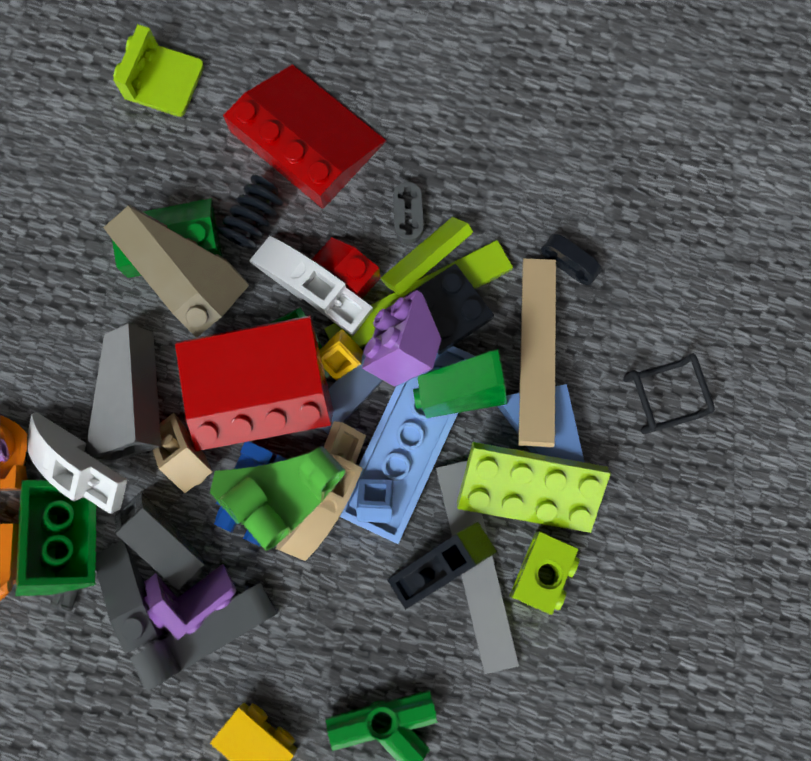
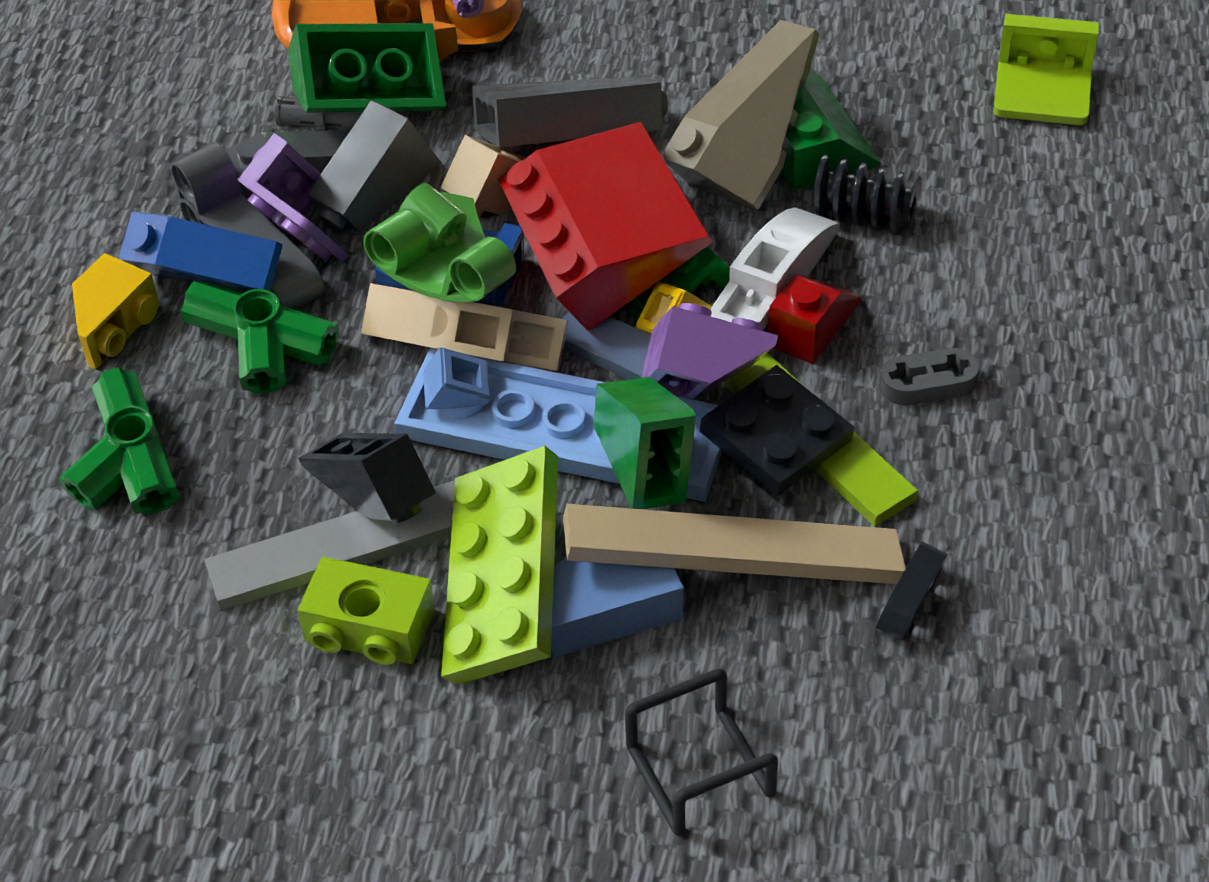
camera: 85 degrees right, 30 degrees down
(71, 470) = (459, 66): white slope -> none
(225, 672) = (199, 252): none -> blue slope
(303, 133) = (1013, 236): red slope -> none
(312, 631) = (262, 330): none -> green piece
(426, 255) = (862, 402): lime tile -> none

